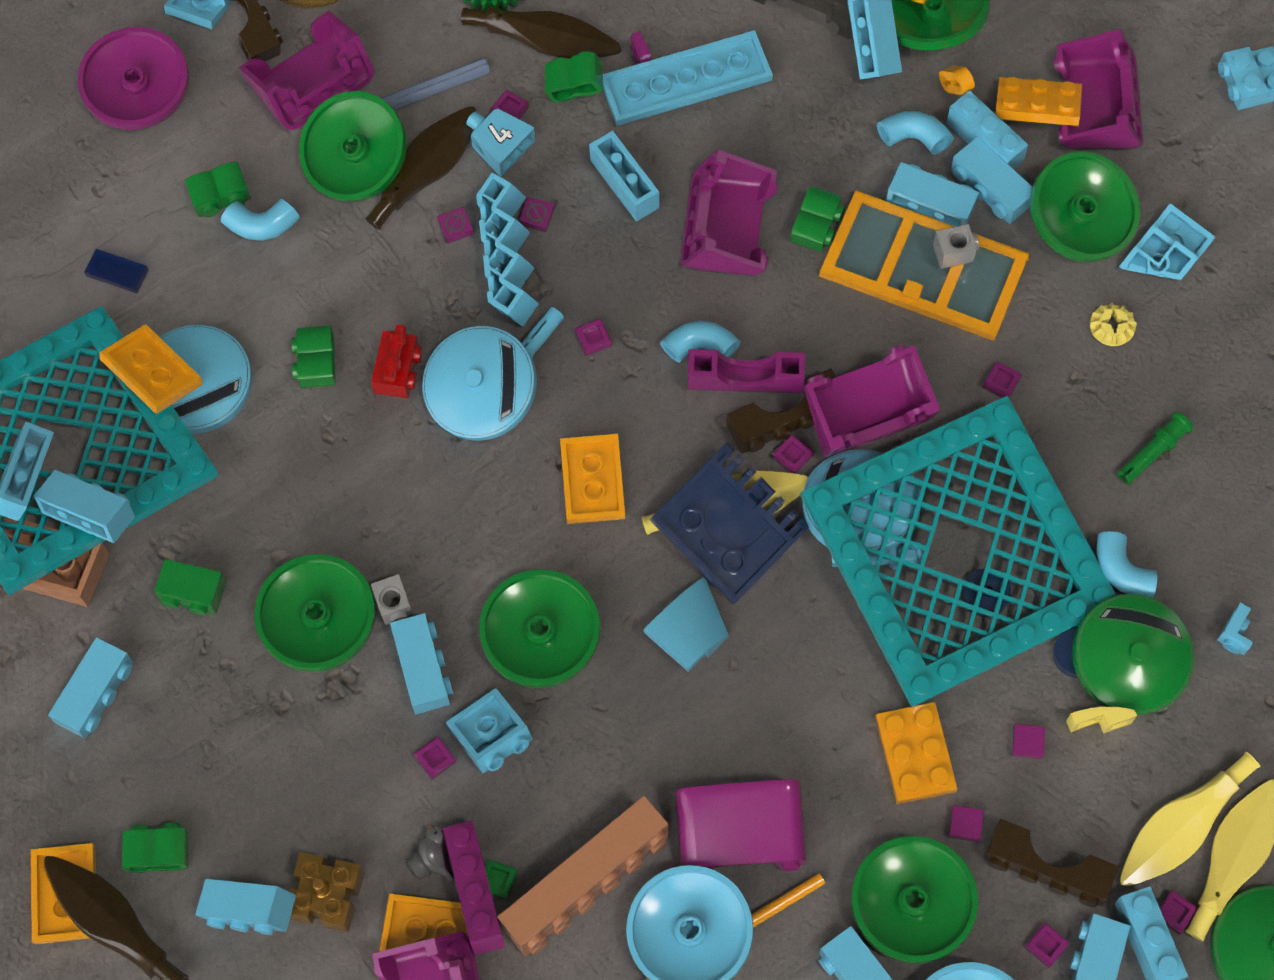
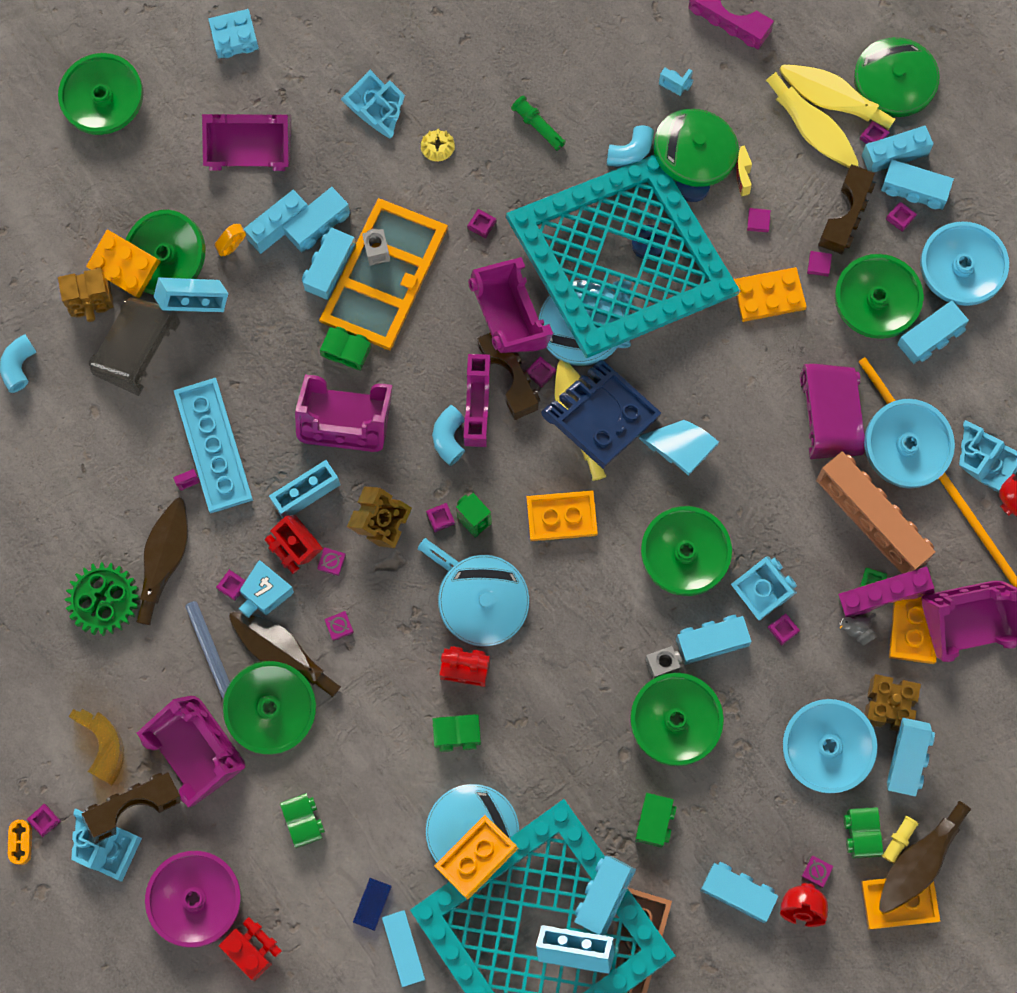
camera: 90 degrees left, 5 degrees up
(60, 305) = (403, 948): none -> medium azure tile
(67, 767) = (805, 904): none -> red cylinder
(70, 138) = (245, 954): none -> red brick
(112, 789) = (817, 871): none -> magenta tile
(144, 897) = (900, 839): none -> light yellow pin
(260, 225) = (336, 783): medium azure cylinder -> none
(269, 805) = (830, 746): none -> medium azure dish
(502, 240) = (356, 586): medium azure brick -> none
(559, 168) = (296, 541): none -> red brick
(573, 77) = (210, 531): green brick -> none
(585, 256) = (379, 517): none -> pearl gold brick
(589, 366) = (473, 514): none -> green brick
(917, 126) = (266, 273): medium azure cylinder -> none
(1039, 101) = (250, 183): light orange plate -> none
(1085, 207) = (344, 155): green dish -> none

